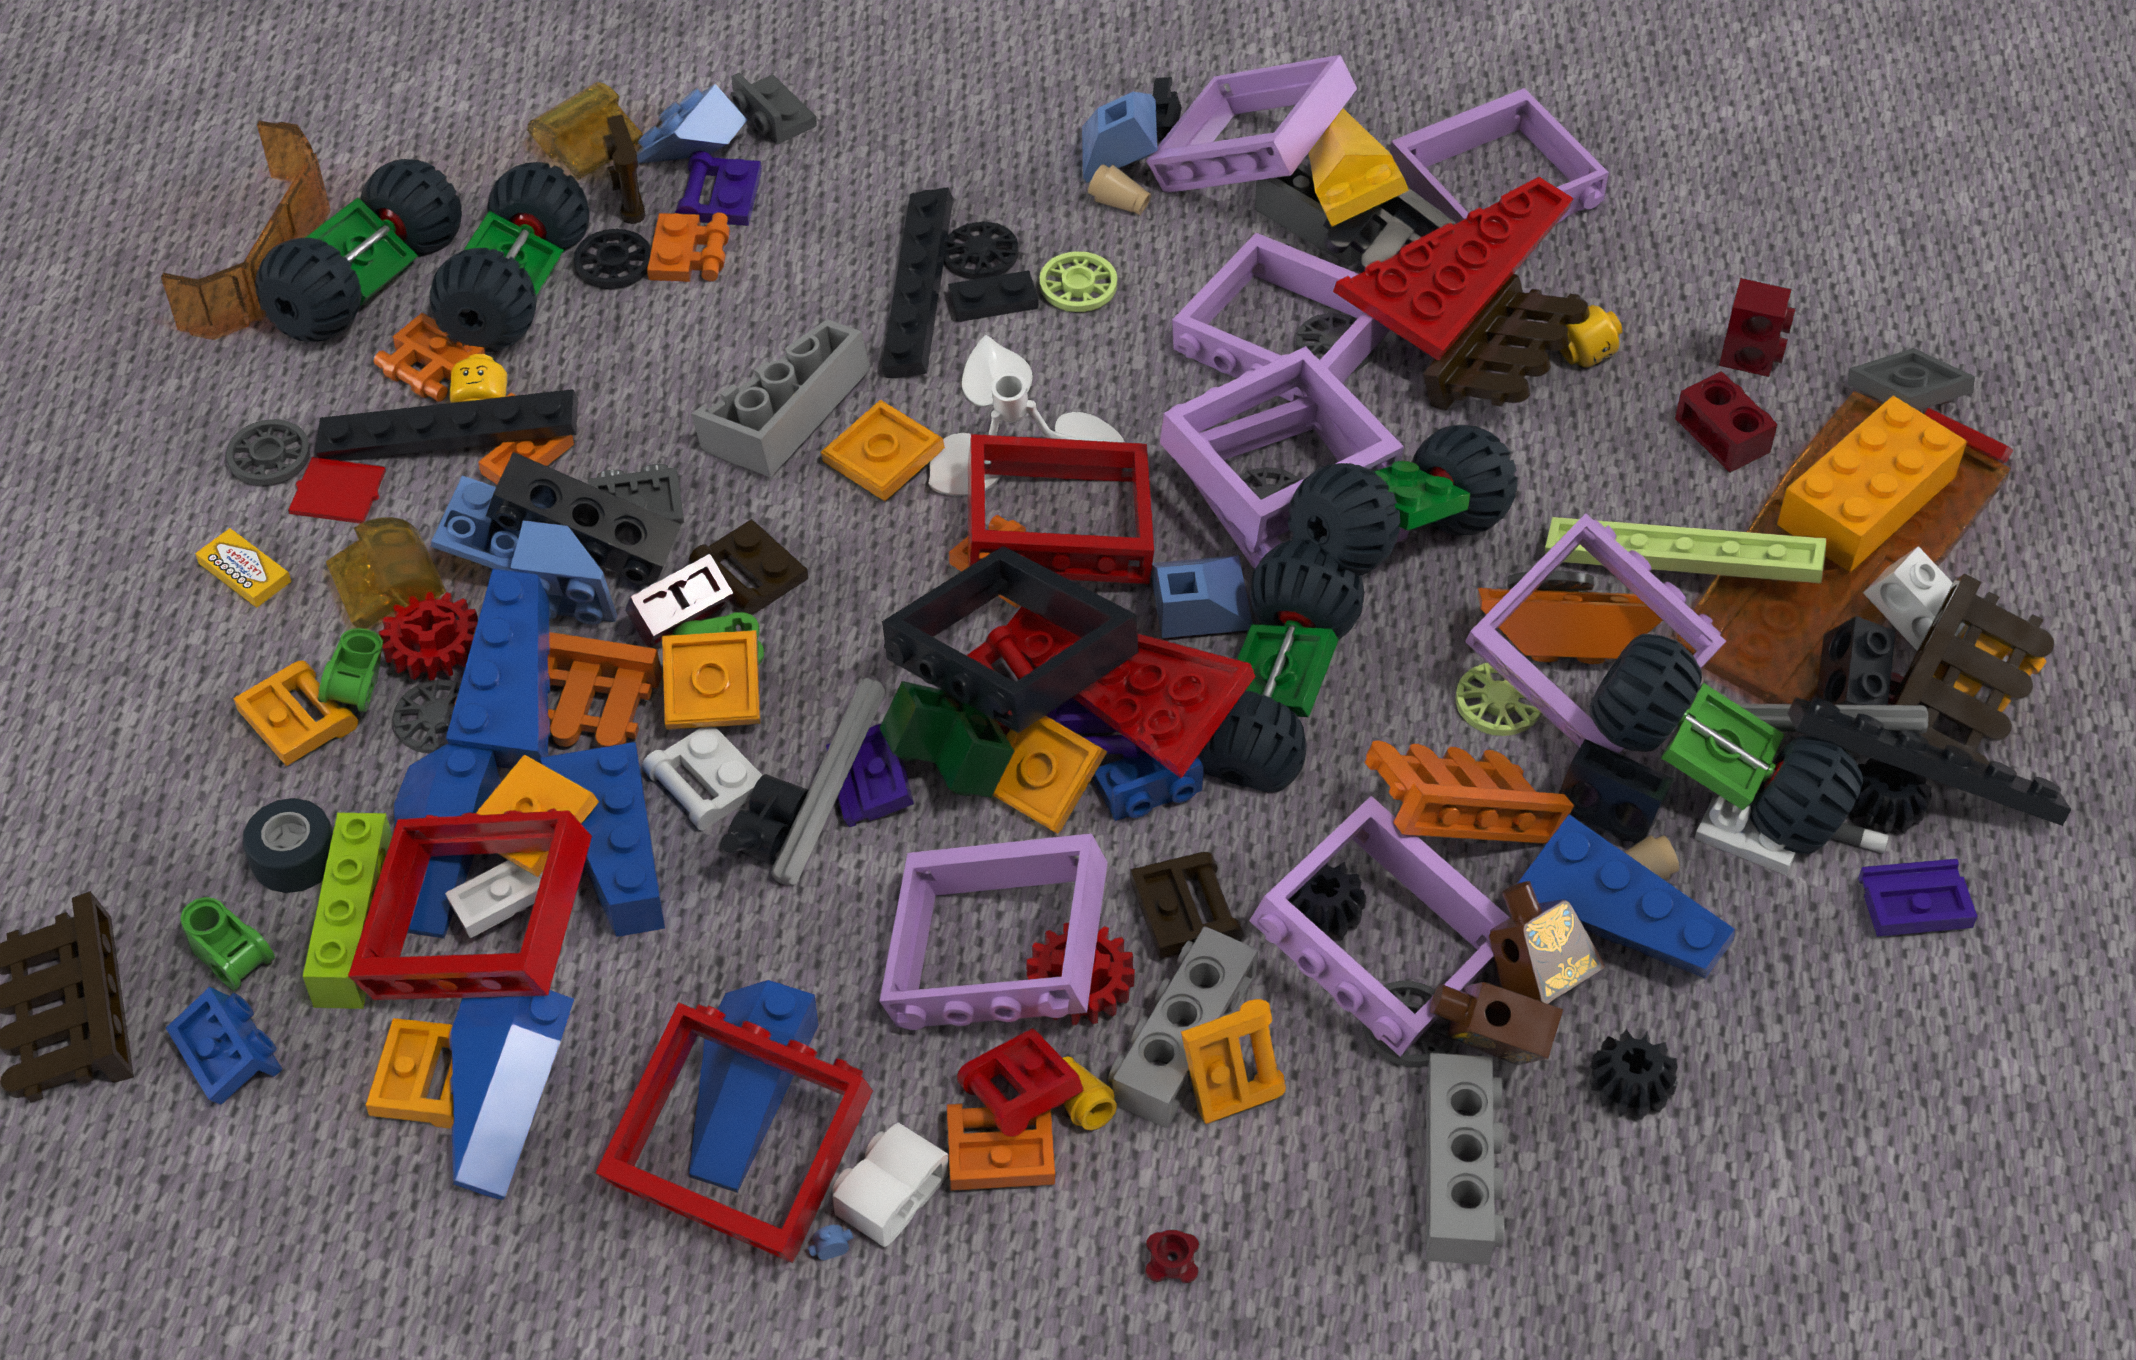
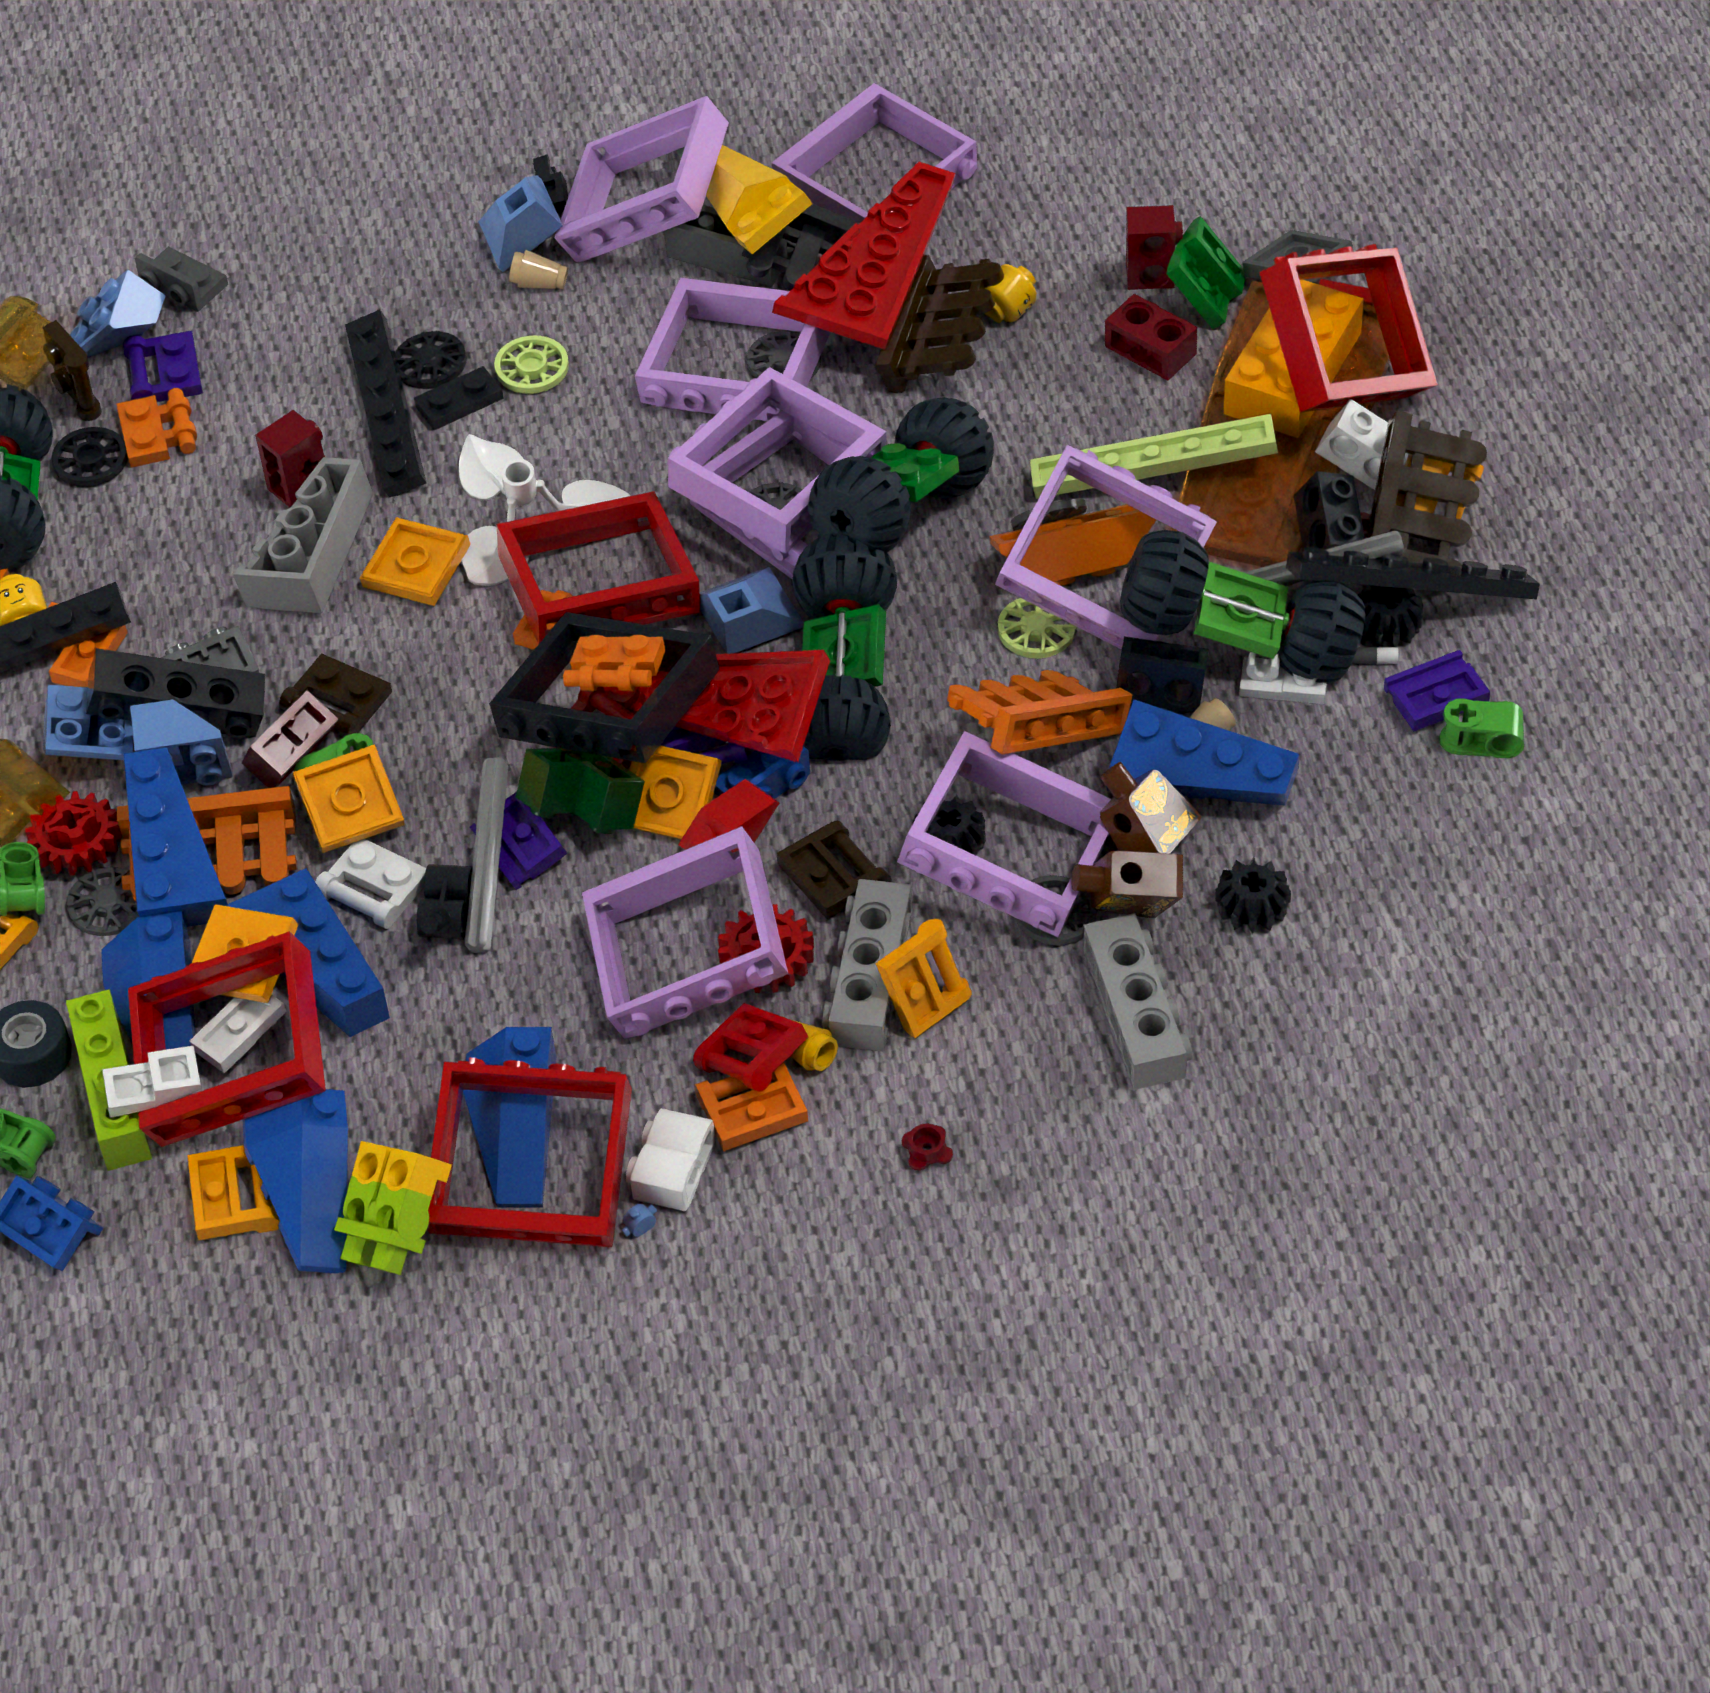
camera: 15 degrees left, 0 degrees up
(367, 931) = (143, 1086): none -> white slope
(565, 1144) = (388, 1205): none -> lime hips
(797, 304) = (289, 454): none -> dark red brick
(1024, 615) = (614, 662): none -> orange plate
(1105, 811) = (738, 807): none -> red slope
(1806, 369) = (1206, 272): none -> green slope
(1960, 957) = (1486, 726): none -> bright green piece
(1997, 467) = (1394, 312): none -> red window

